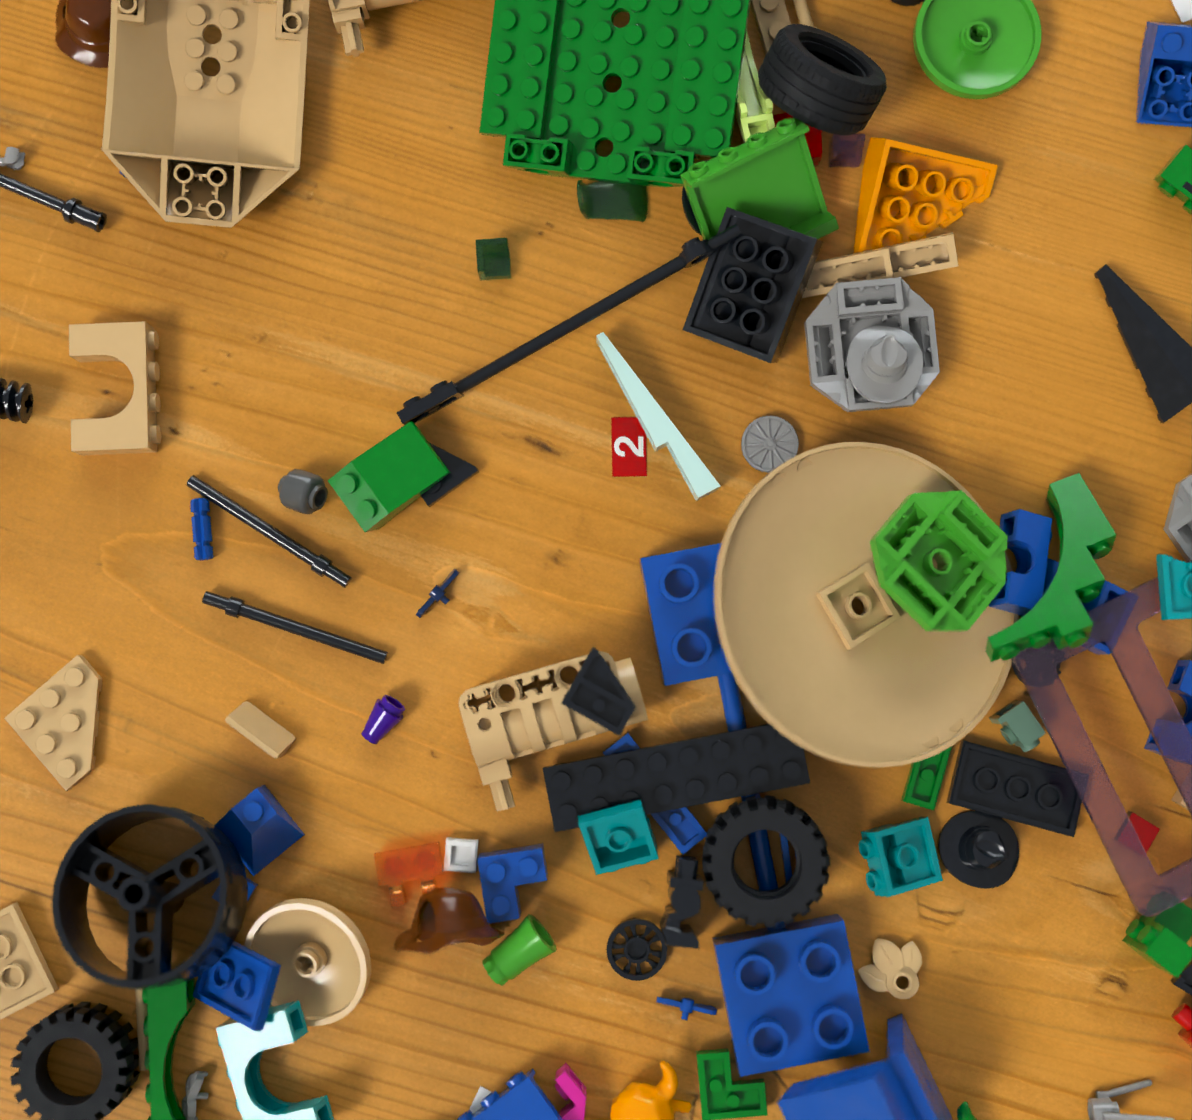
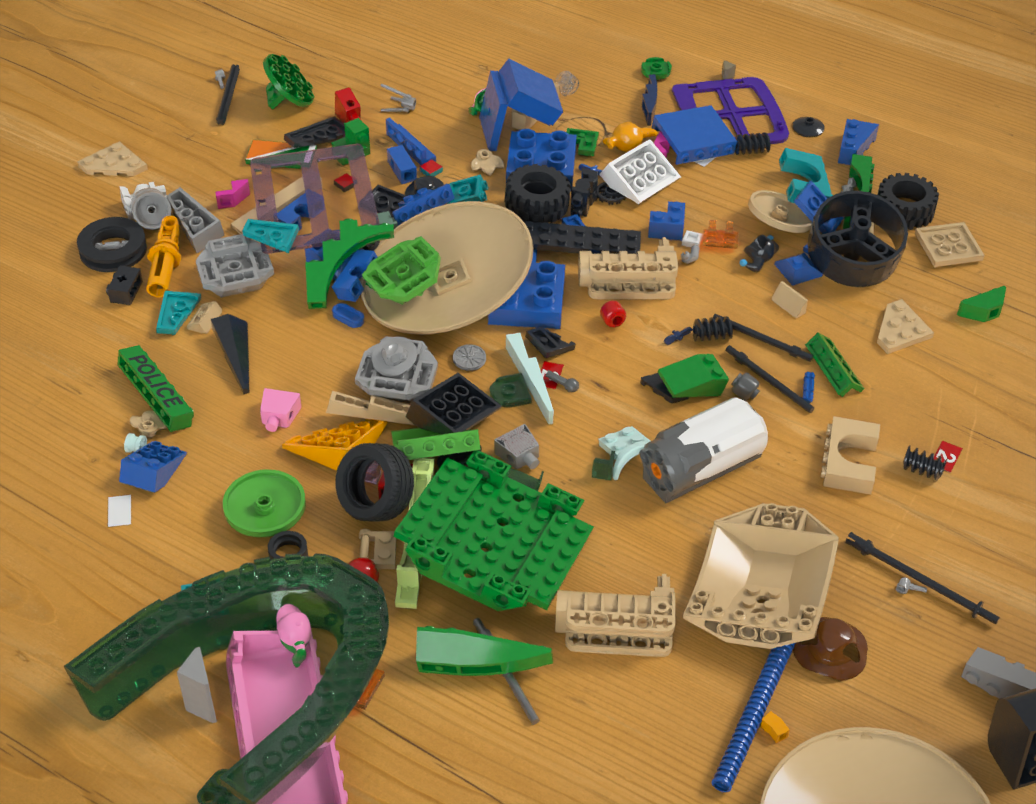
camera: 165 degrees left, 40 degrees down
(167, 587) = (833, 364): none -> green fence
(330, 844) = (760, 251): none -> black piece
(336, 302) = (703, 448): none -> piece
(380, 612) = (712, 327): none -> black piece
(384, 716) = (720, 292): dark purple cone -> none
(446, 393) = (649, 408): black bar -> none
(446, 918) = (697, 196): reddish brown piece -> none
(451, 805) = (690, 257): none -> light grey arm
(463, 306) = (626, 444): none -> light aqua piece
(519, 951) = (662, 196): bright green plant -> none
(555, 602) = (613, 313): none -> red head
(588, 430) = (570, 385): none -> dark grey bar
(591, 1007) = (640, 172): none -> white slope
(599, 695) = (602, 251): black wing -> none
(618, 837) = (608, 220): teal plate -> none
(630, 254) = (518, 448): none -> light grey torso
(648, 509) = (548, 343): none -> black wing
(682, 387) = (510, 391): none -> clear green tile
(975, 790) = (422, 201): none -> blue bracket
(992, 921) = (431, 168): none -> red tile
(1002, 486) = (348, 315): none -> blue tile
(1033, 234) = (279, 408): none -> bright pink torso
(1050, 909) = (401, 164): none -> blue brick
(1056, 984) = (410, 143): none -> blue fence

